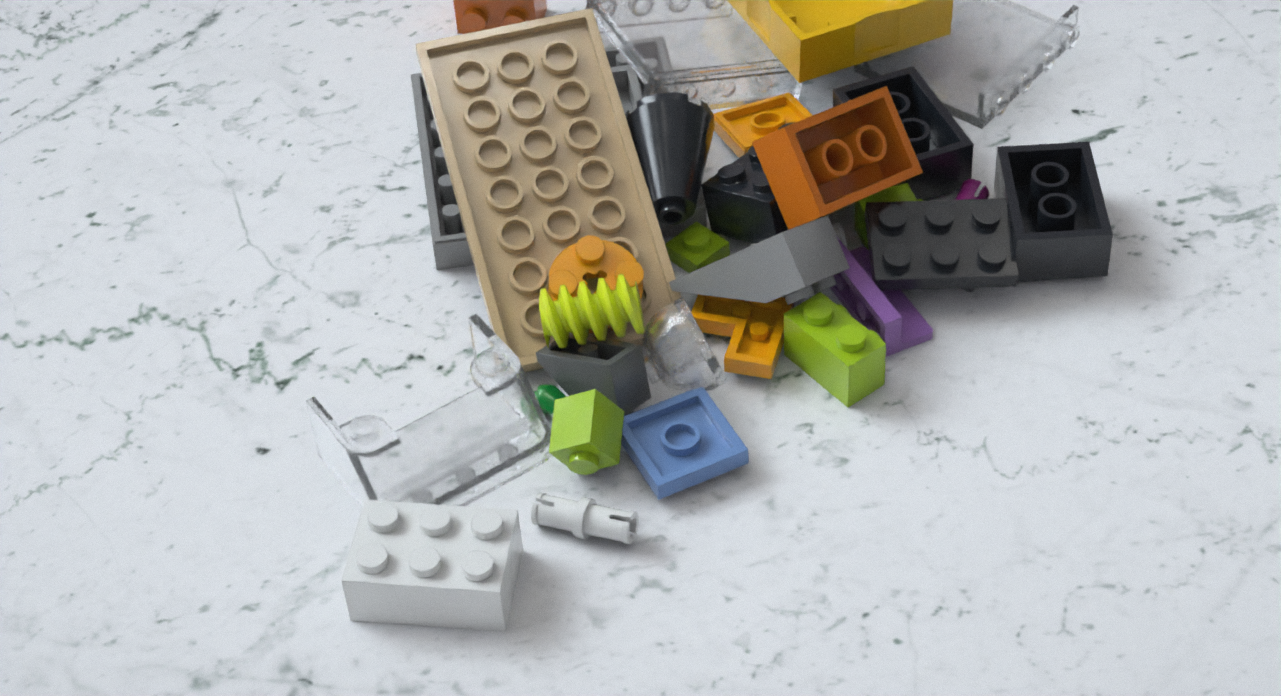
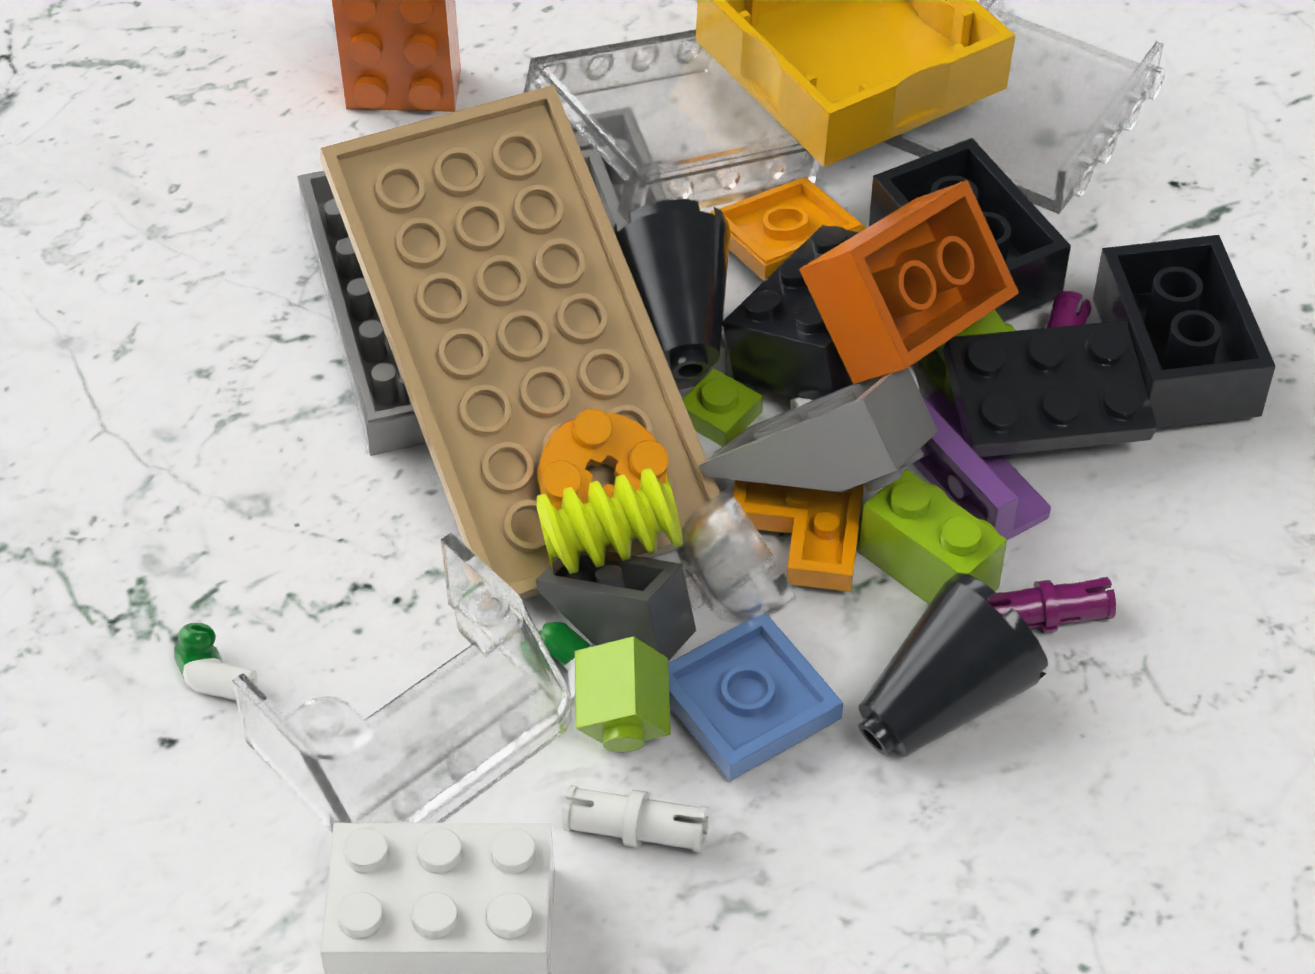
camera: 10 degrees left, 5 degrees up
(292, 396) = (202, 663): none -> arm
(829, 431) = (950, 669): none -> black cone
(914, 396) = (1053, 605): none -> magenta pin

